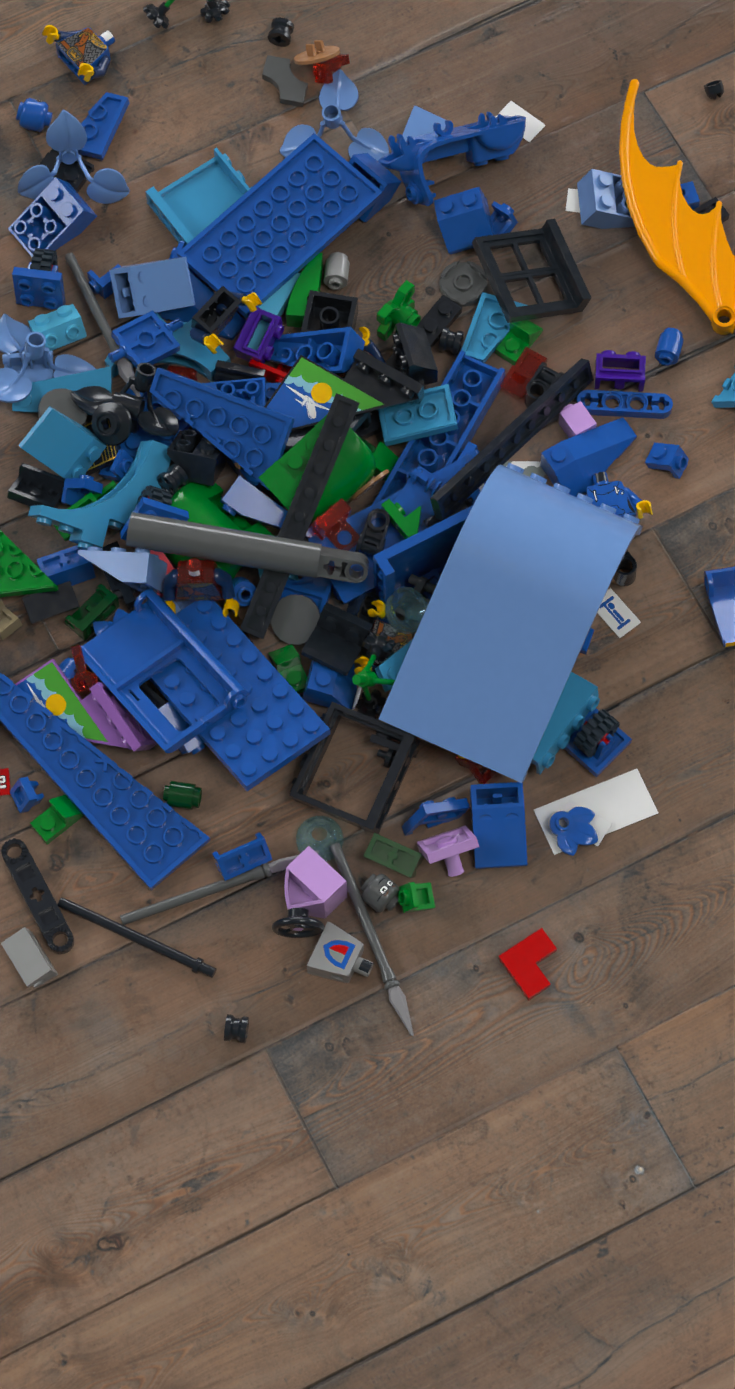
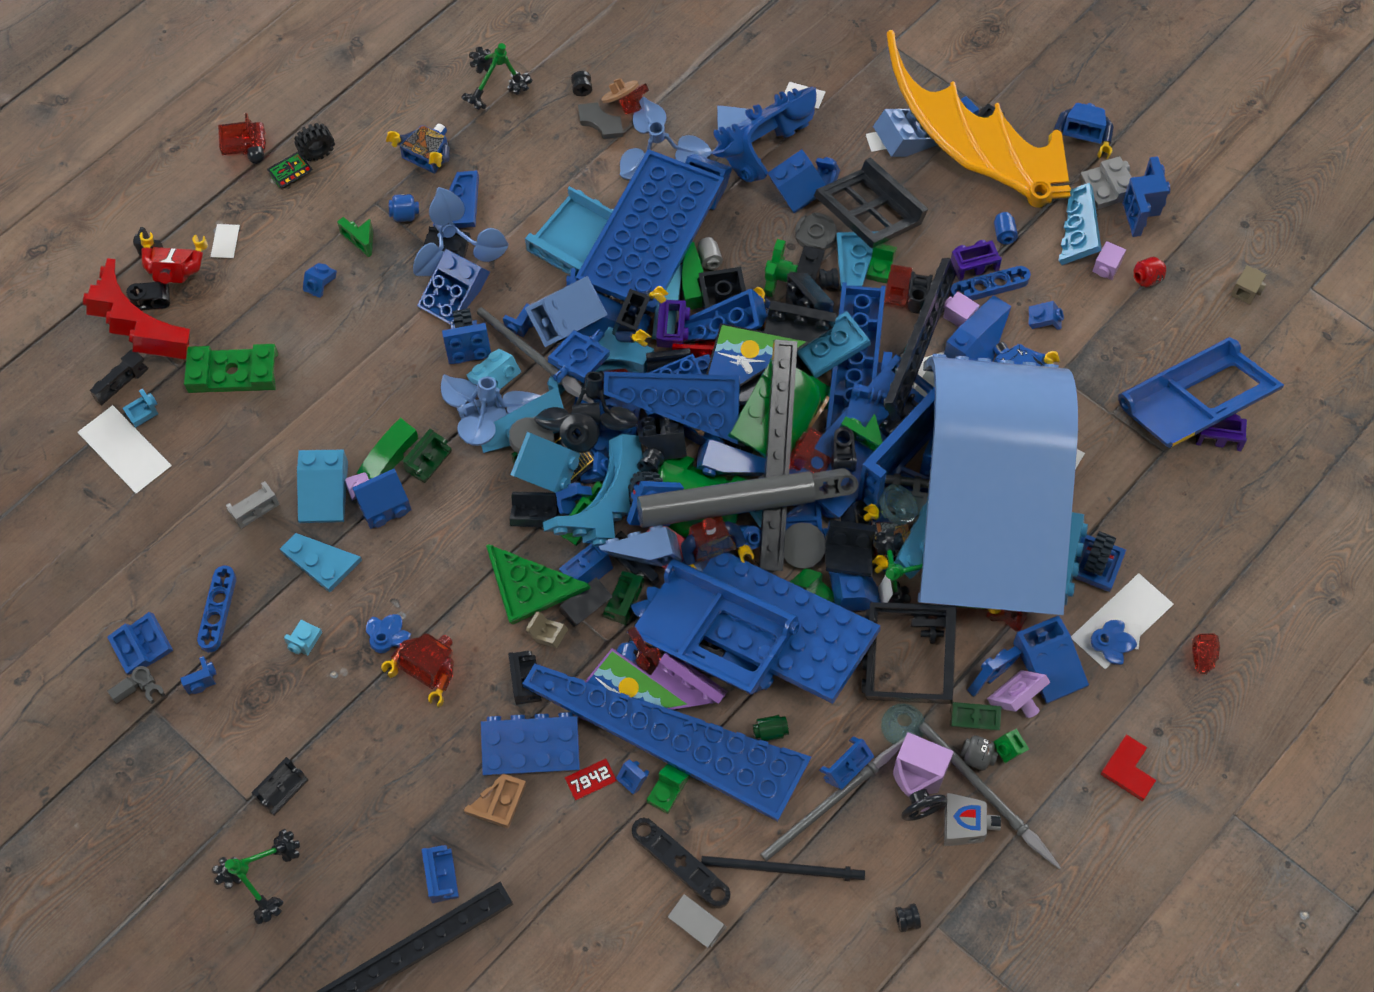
camera: 20 degrees left, 5 degrees down
(664, 874) = (1205, 652): none -> clear red rock
(713, 88) = (947, 24): black hinge -> none

